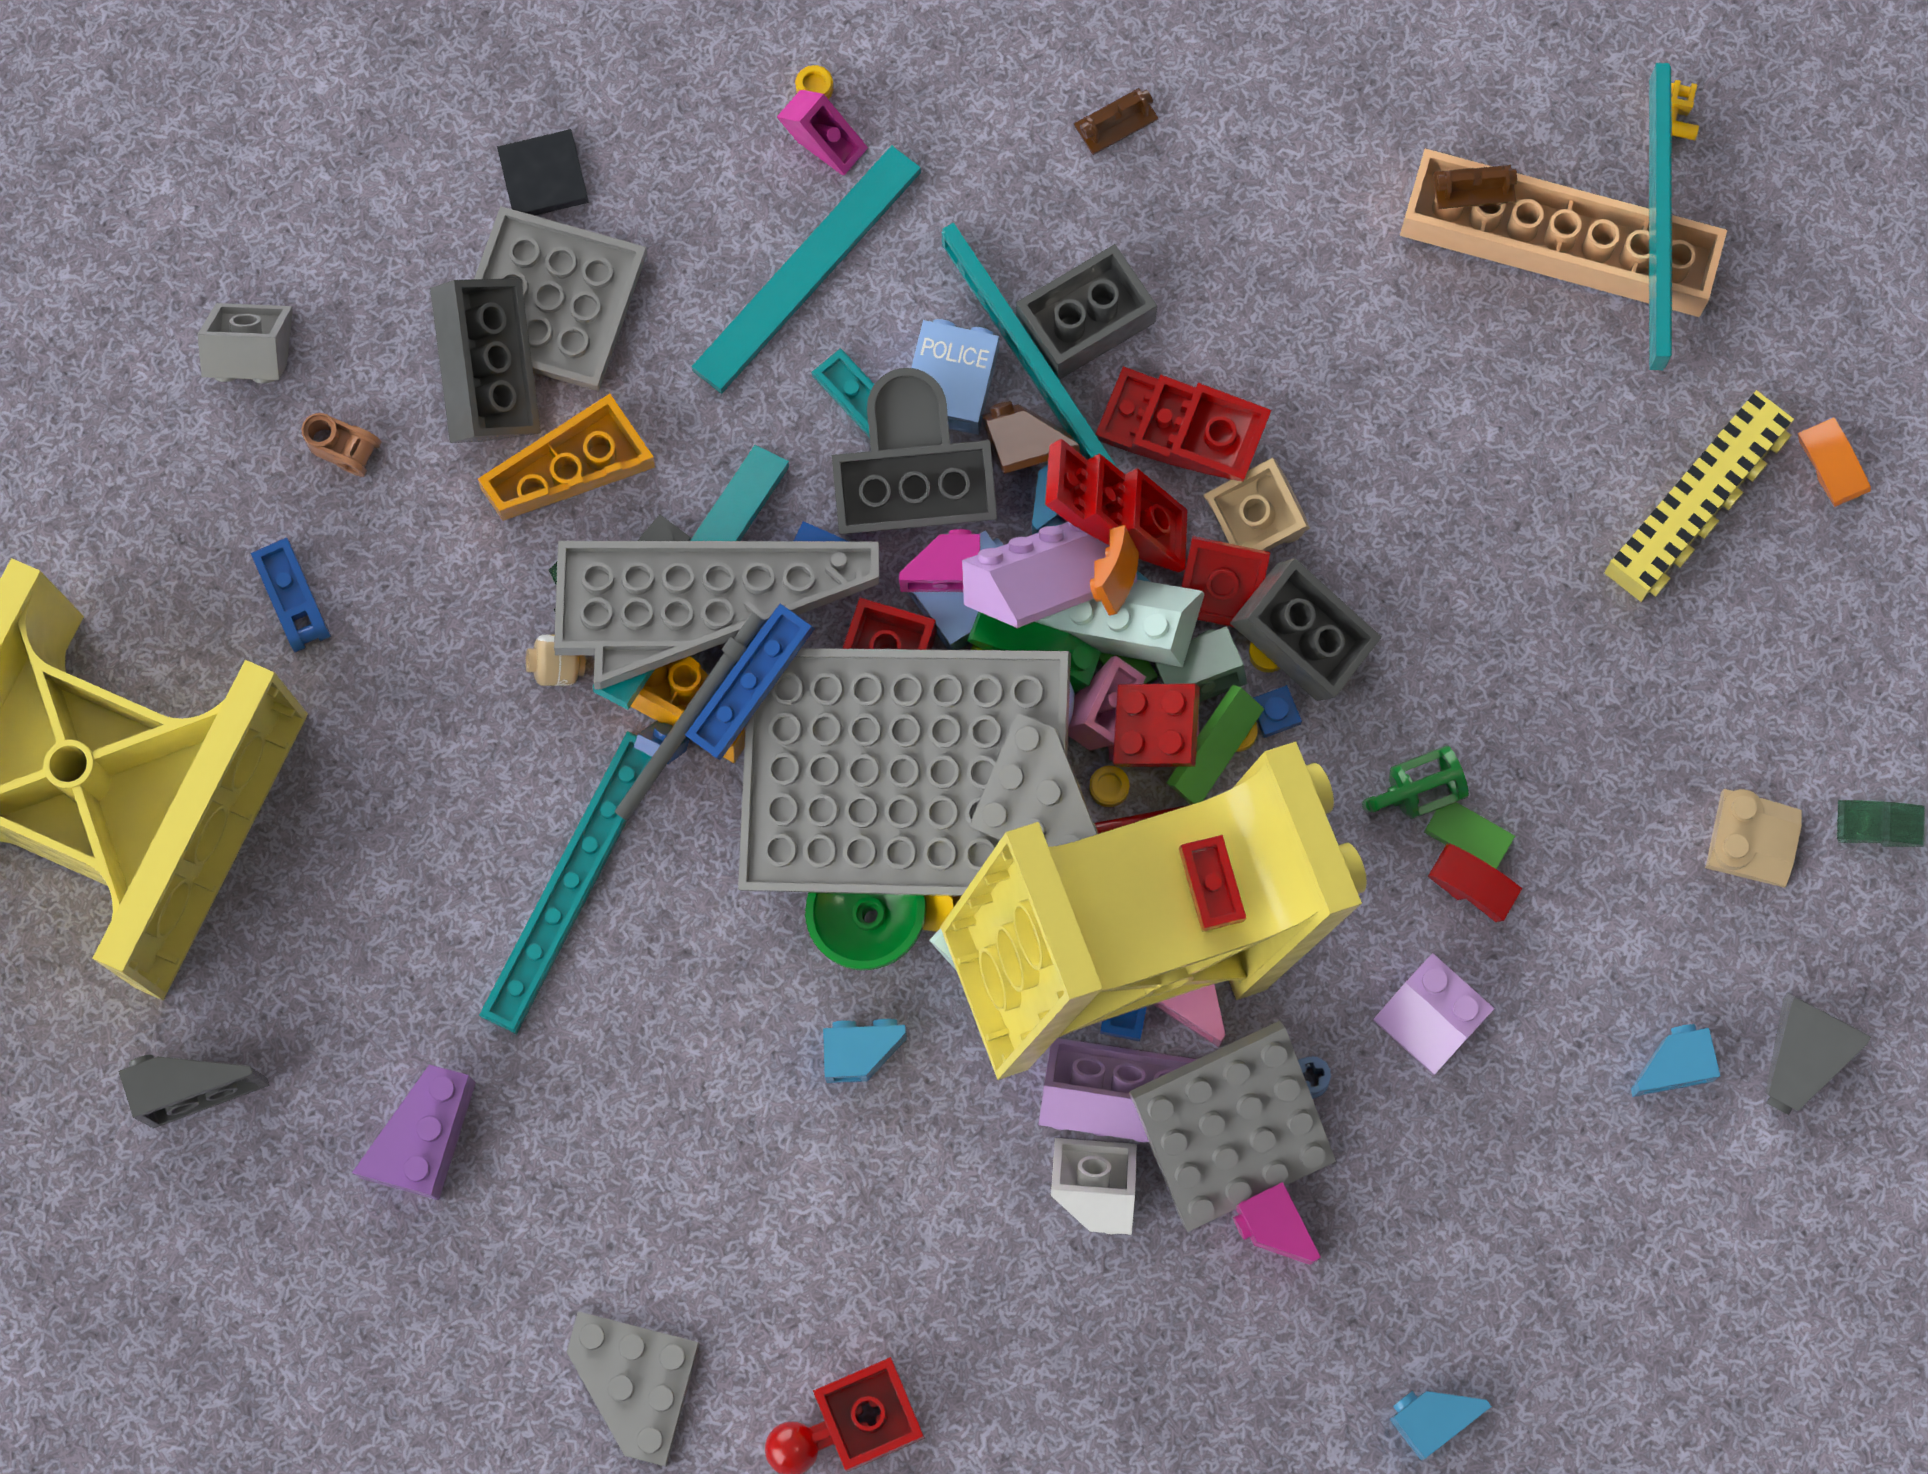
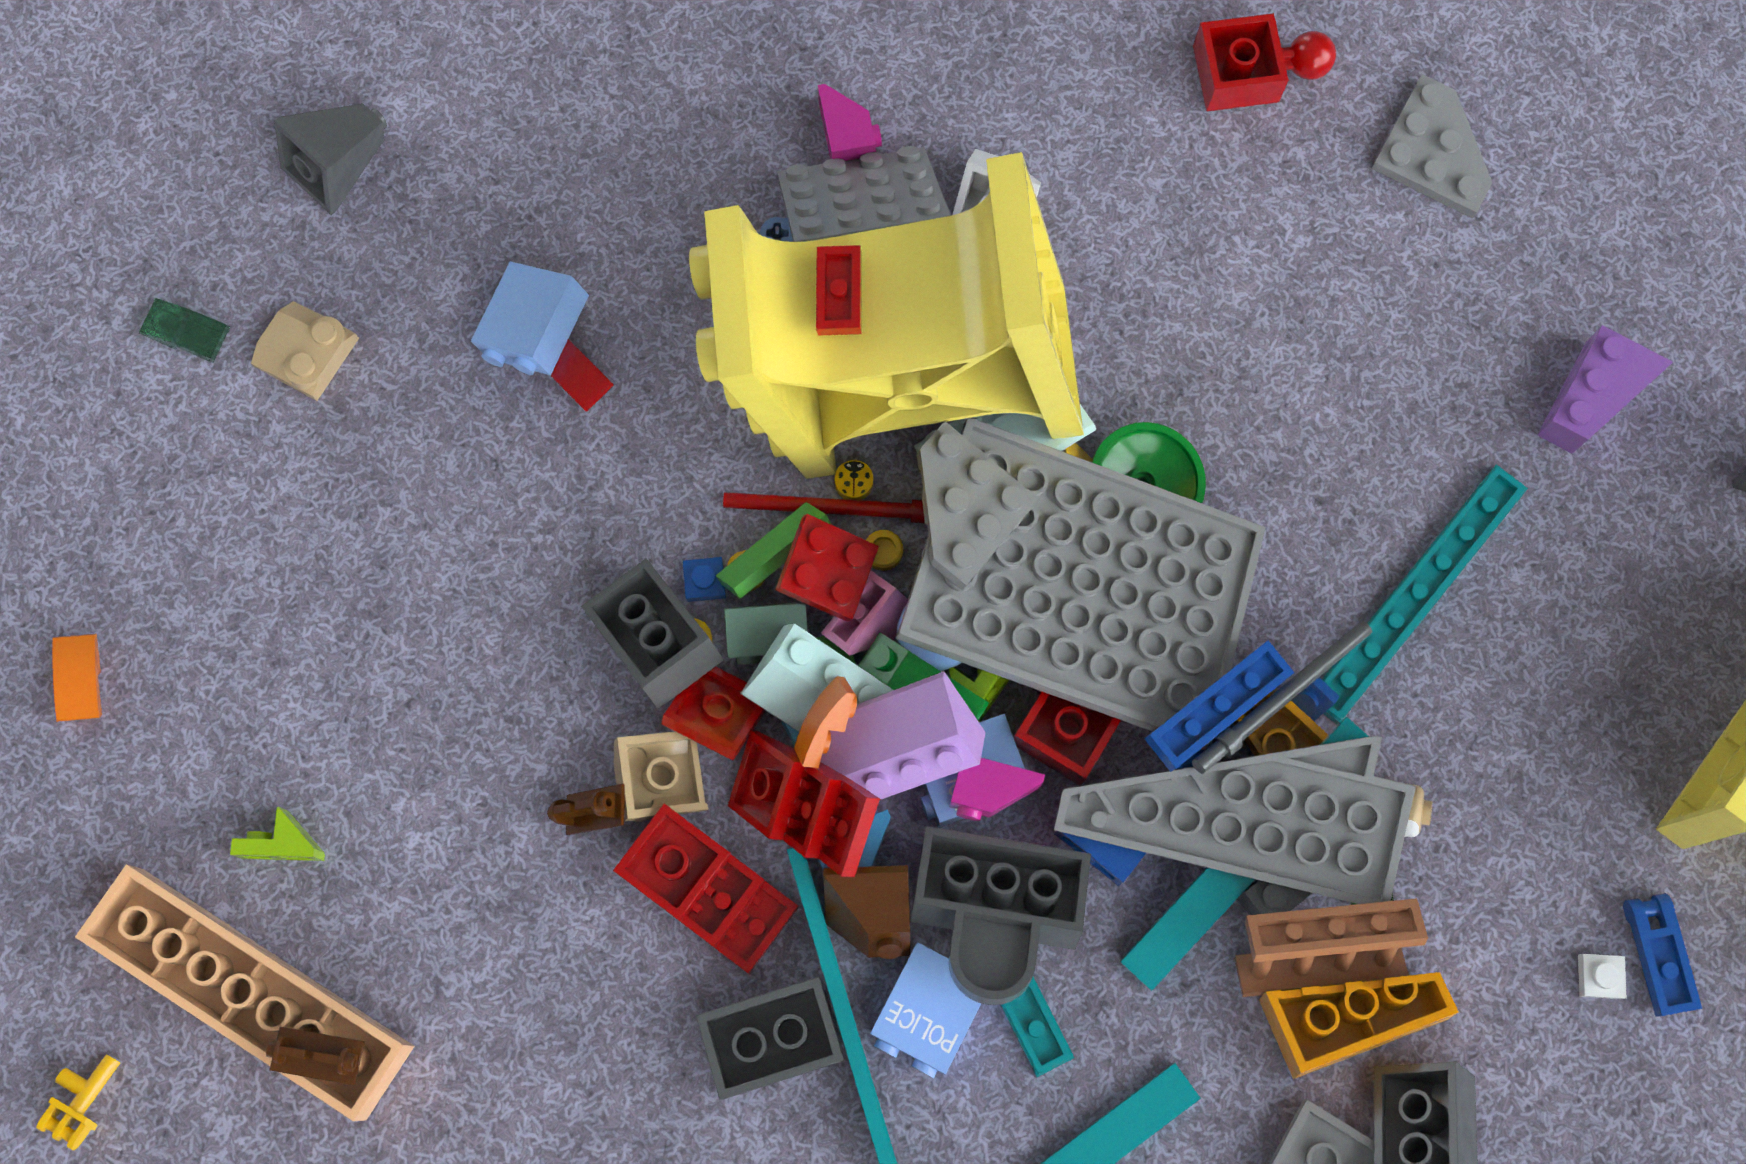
camera: 170 degrees left, 0 degrees up
(343, 564) = (1602, 976): none -> white plate
(346, 446) = (1586, 1104): nougat piece -> none
(604, 505) = (1328, 945): none -> nougat fence
(859, 1052) = (1179, 364): dark azure slope -> none
(1311, 463) = (590, 810): none -> reddish brown hinge
(1405, 791) = (610, 464): green piece -> none
(1433, 1014) = (647, 266): lavender slope -> none
(1470, 832) = (561, 419): bright green tile -> none
(1535, 917) = (529, 319): none -> light blue brick
(1575, 367) = (289, 842): none -> lime slope
(1660, 217) = (134, 968): teal tile -> none
(1679, 1062) = (451, 171): dark azure slope -> none
(1698, 496) = (218, 678): light yellow brick -> none

